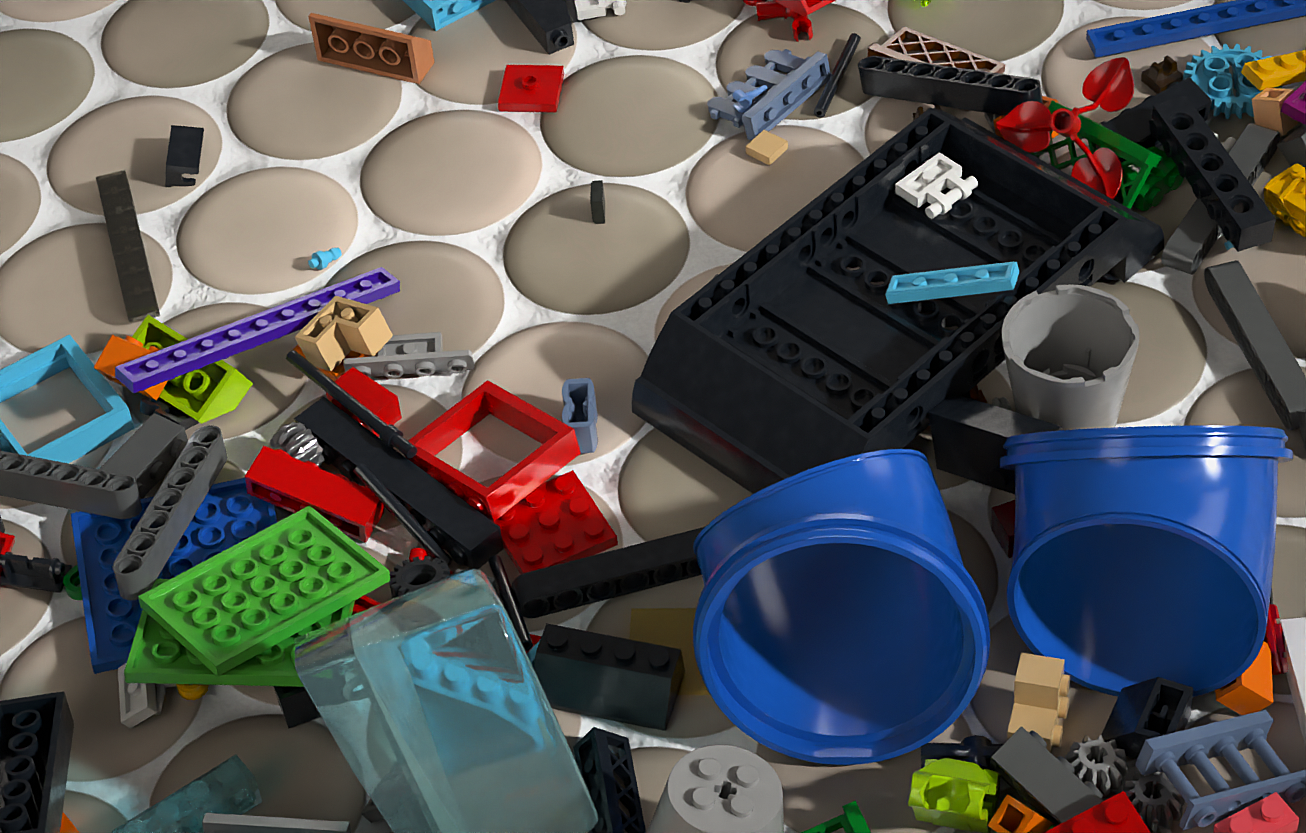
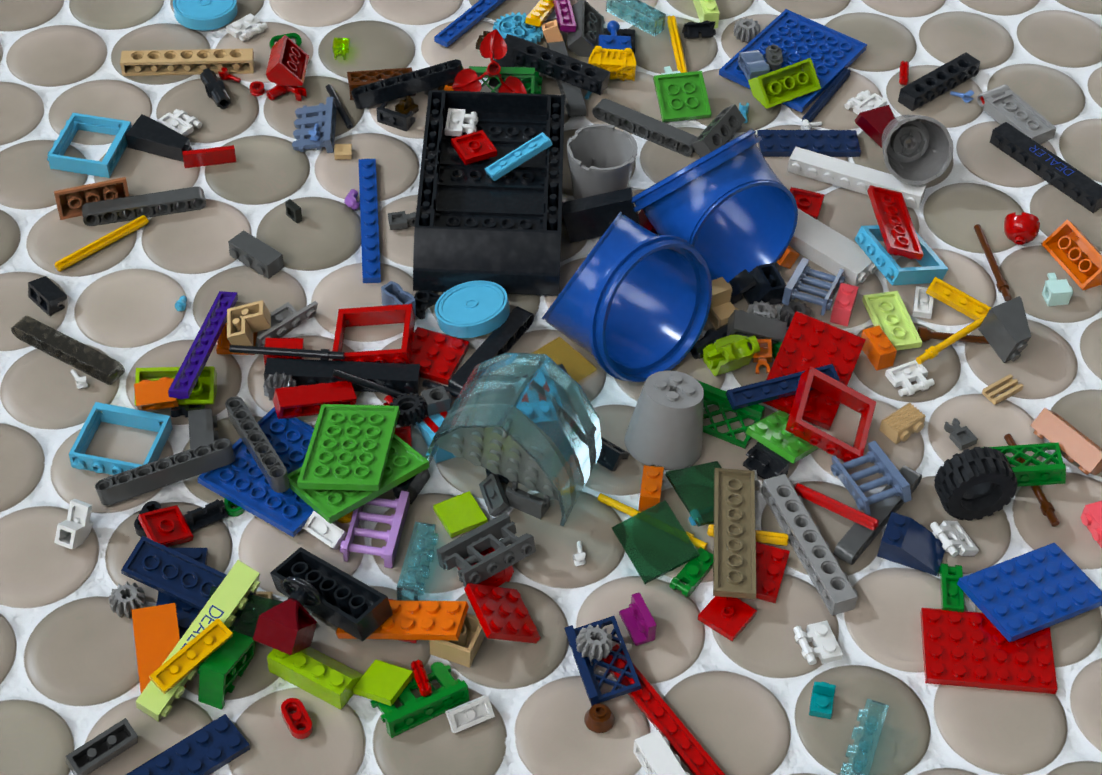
camera: 50 degrees left, 0 degrees up
(101, 297) = (81, 382): none -> white hand
(235, 738) = (392, 536): none -> lavender fence
(322, 787) = (460, 514): none -> lime tile
(324, 118) = (101, 243): none -> yellow axle
(425, 93) = (147, 204): none -> dark grey beam
(480, 239) = (256, 254): none -> dark grey brick
(531, 88) = (195, 176): red plate -> none
(579, 63) = (209, 156): none -> red tile
(624, 436) = (423, 301): none -> black piece
(664, 488) = (472, 309): none -> medium azure brick
(688, 272) = (369, 221): none -> blue plate
(697, 224) = (350, 199): none -> medium lavender arm
(885, 124) = (394, 118): none -> black hinge
(912, 234) = (474, 147): none -> red plate
(1102, 693) = (740, 284): none -> black slope

